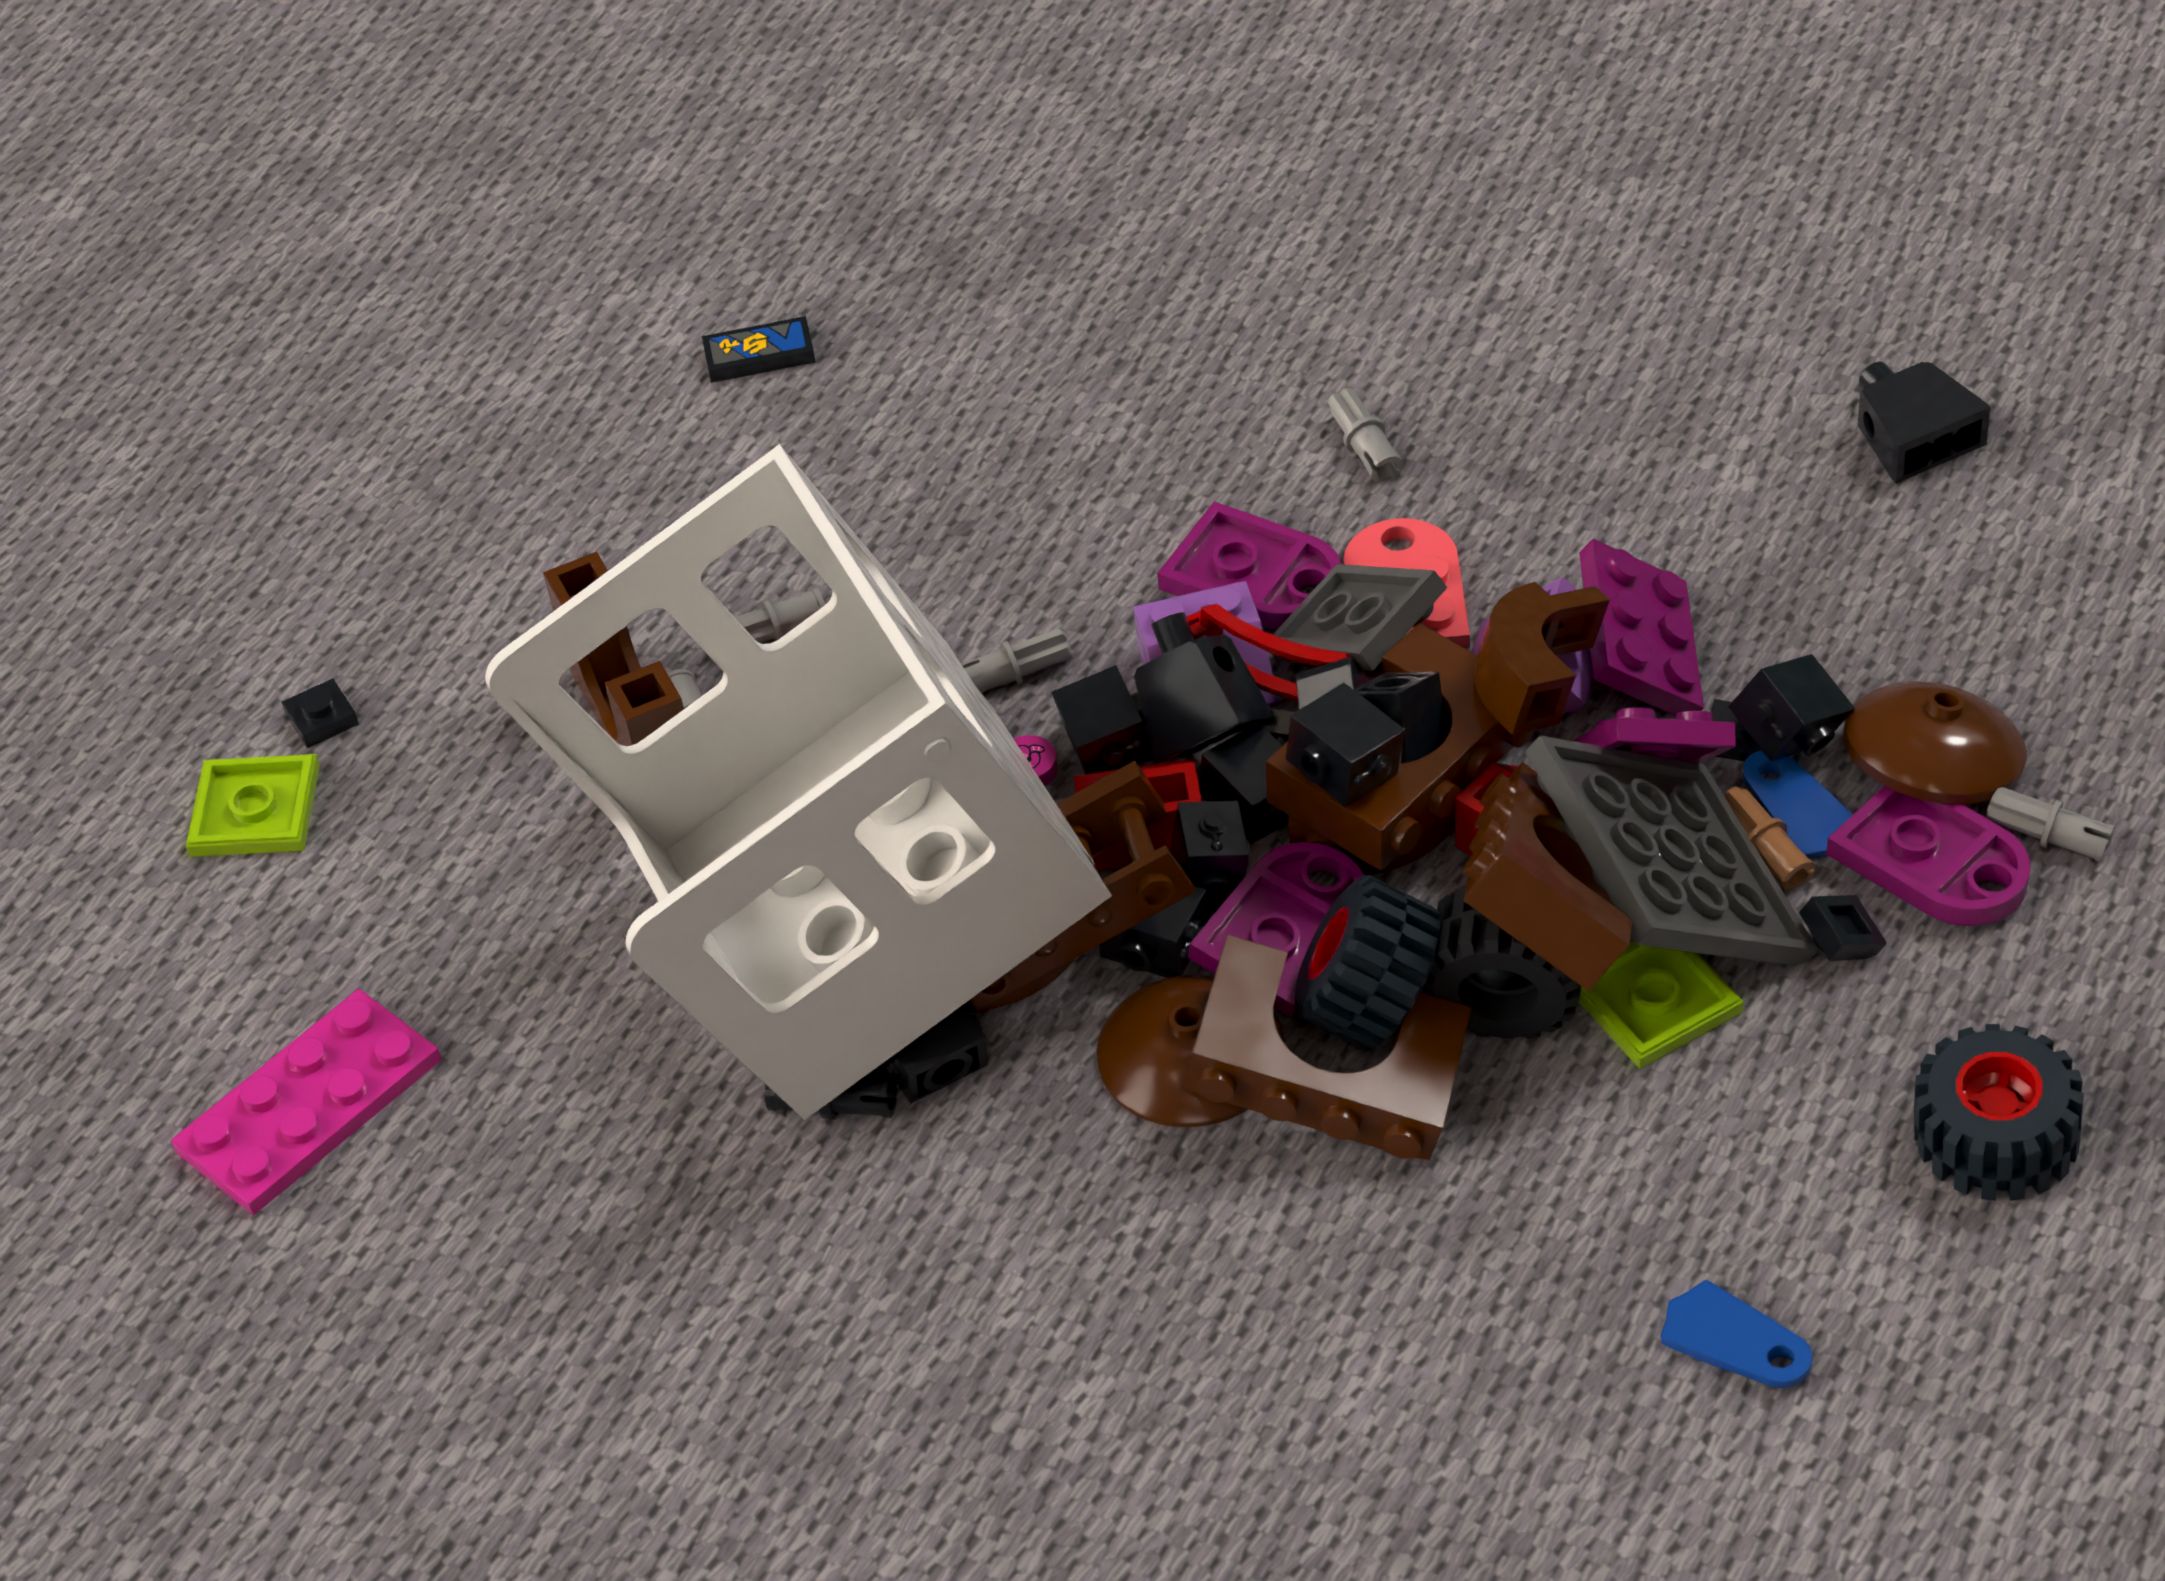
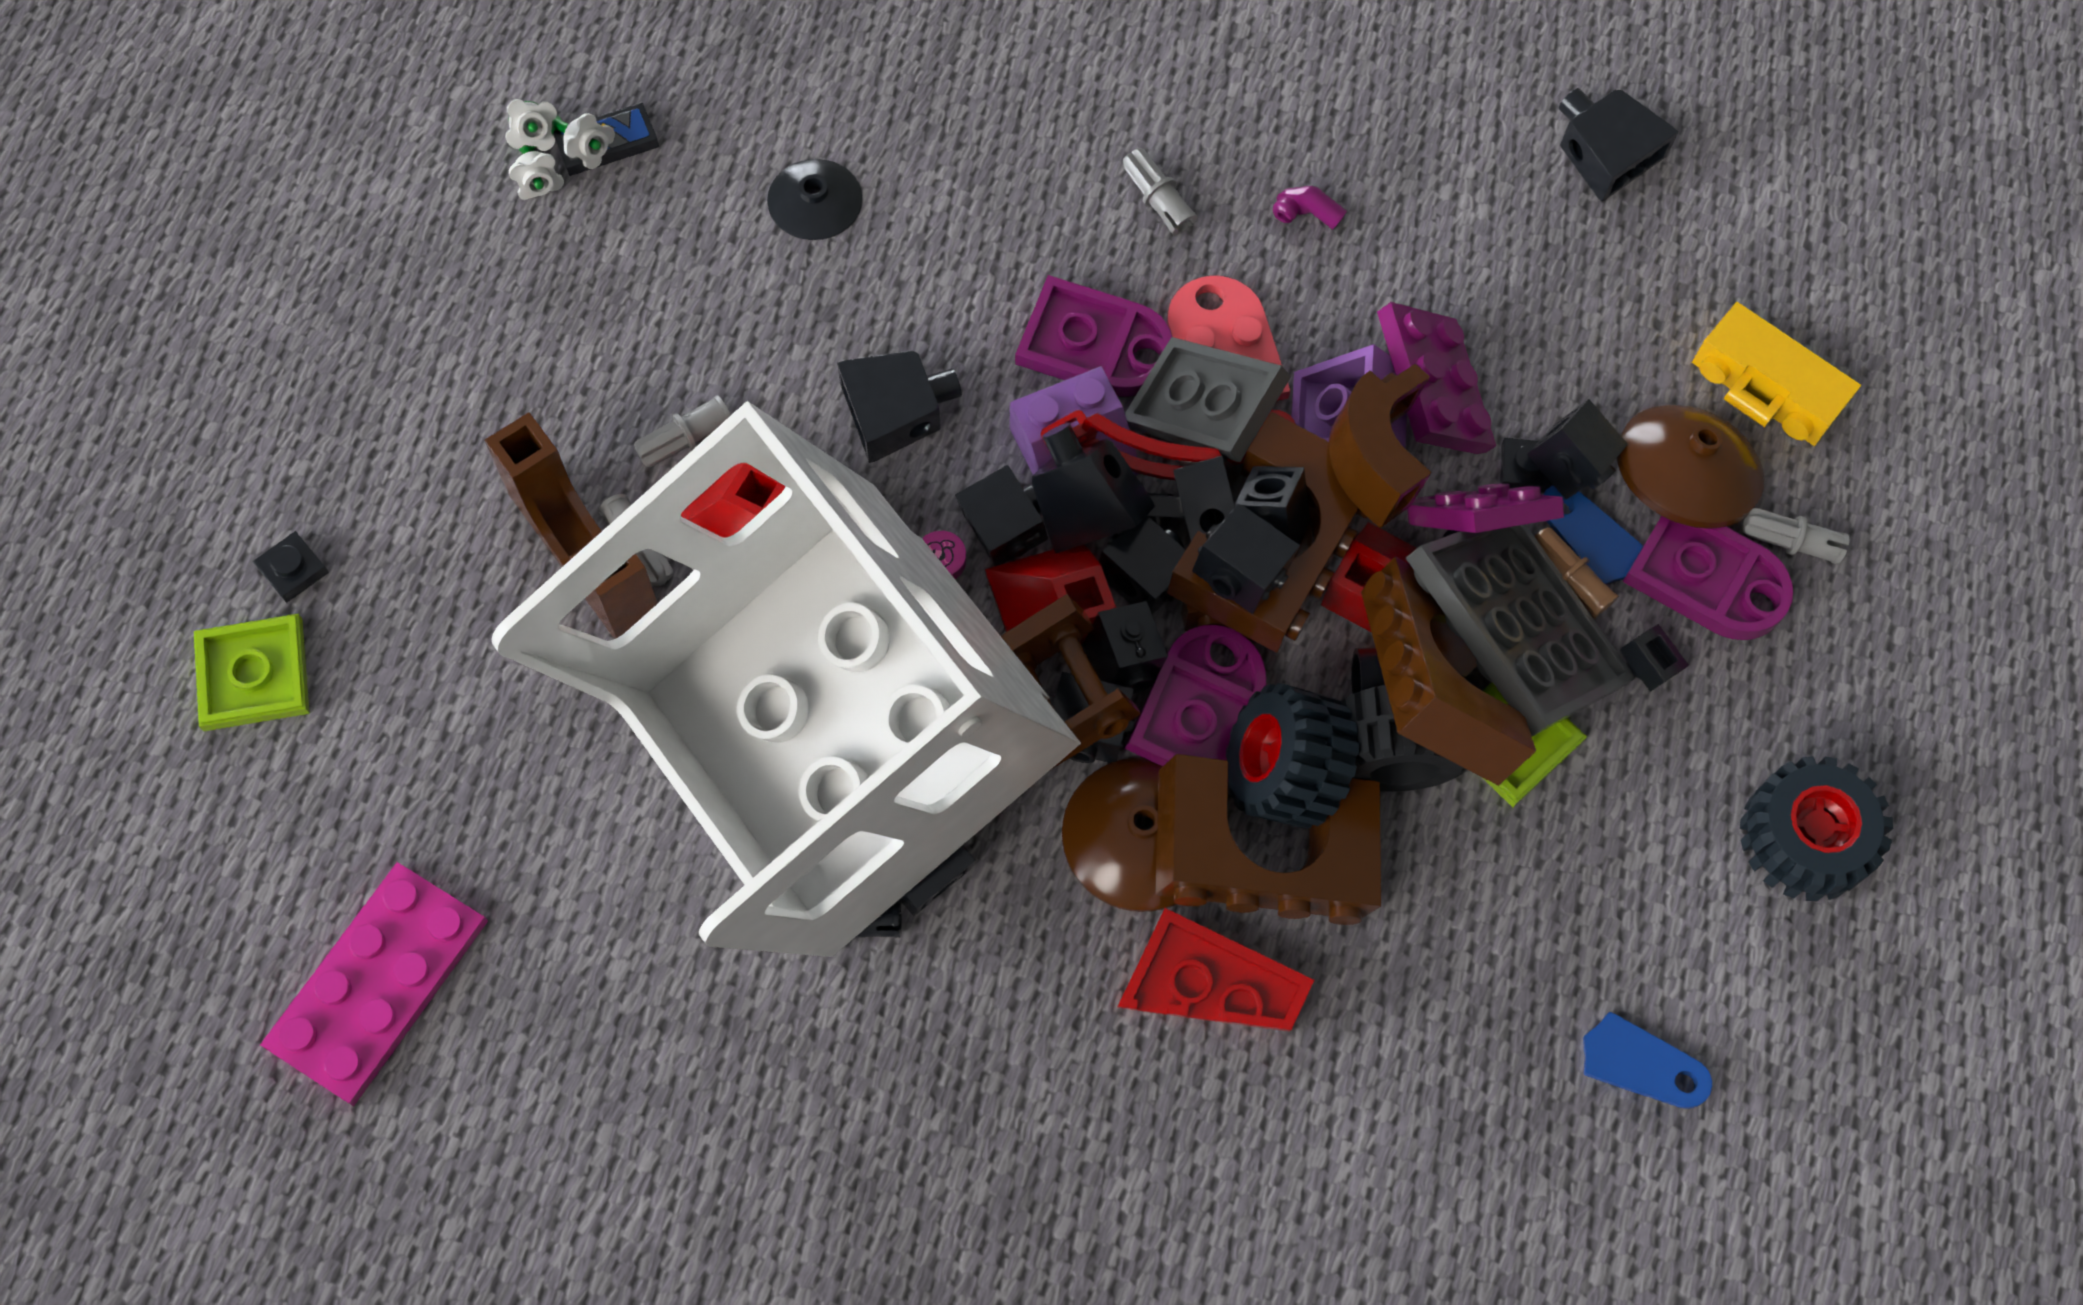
camera: 20 degrees left, 20 degrees up
(682, 330) = (533, 127): none -> white plant
(974, 421) = (817, 214): none -> black dish
(1011, 600) = (894, 400): none -> black torso
(1018, 660) = (907, 455): light grey axle -> none
(1235, 1192) = (1213, 978): none -> red wing
(1534, 455) = (1305, 201): none -> magenta arm
(2057, 657) = (1773, 375): none -> yellow piece

